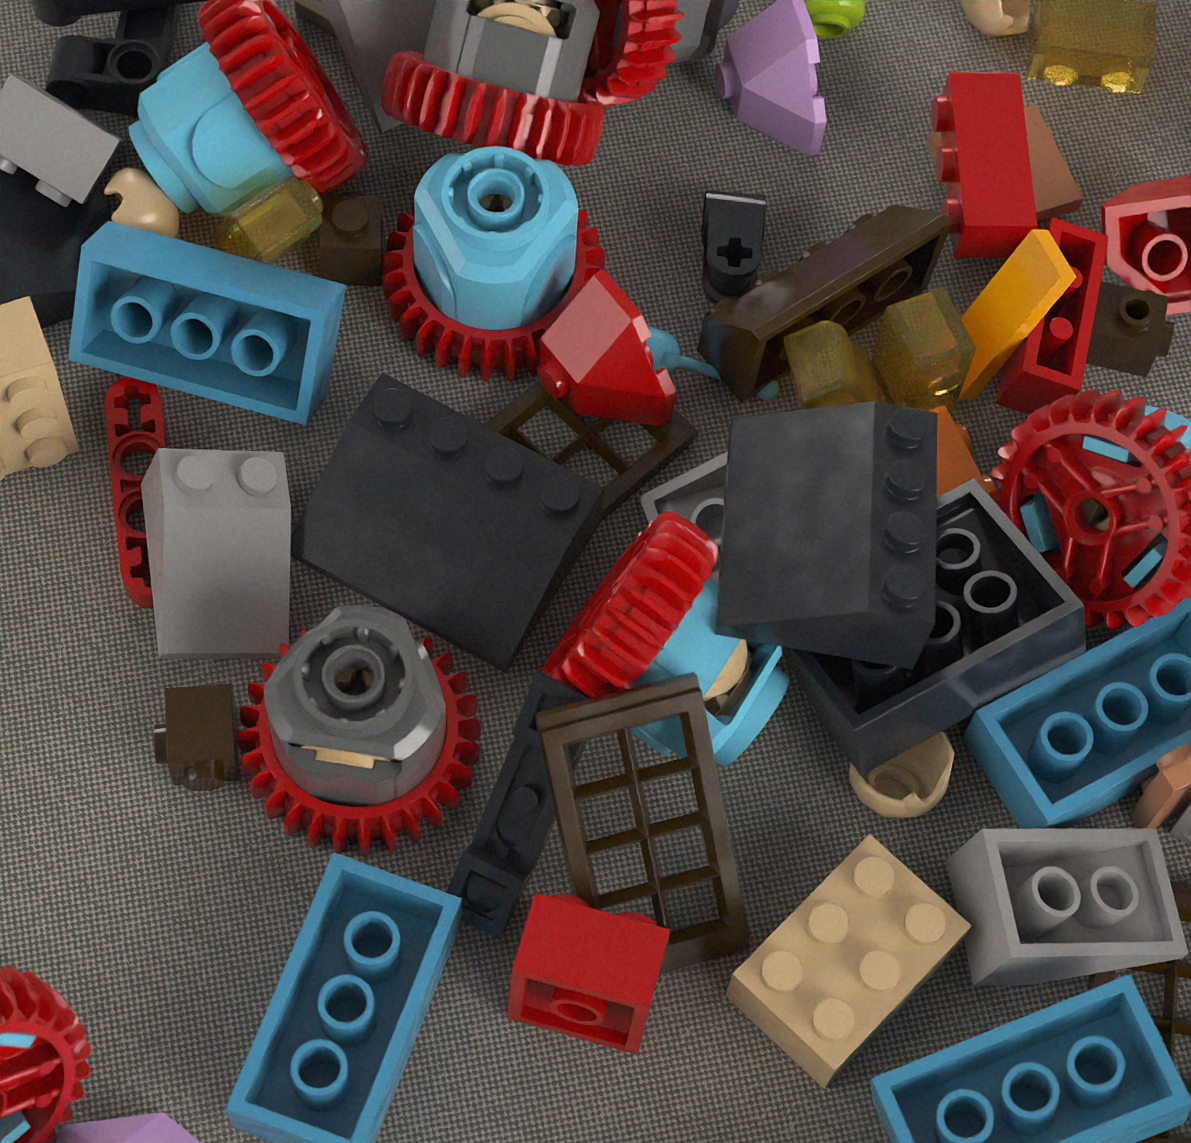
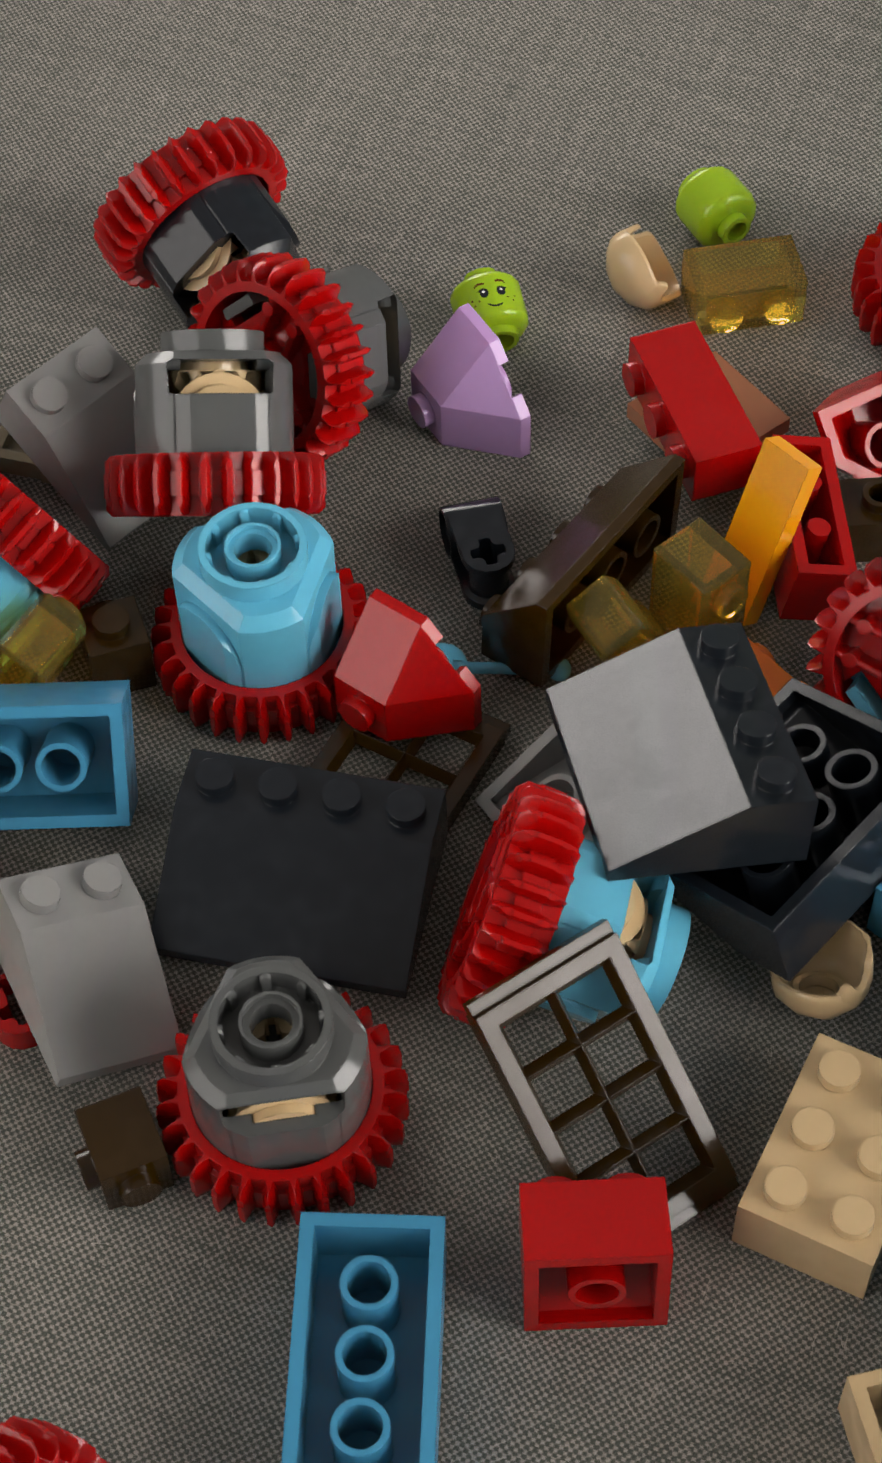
camera: 10 degrees left, 10 degrees down
(515, 818) = (467, 1123): black slope -> none

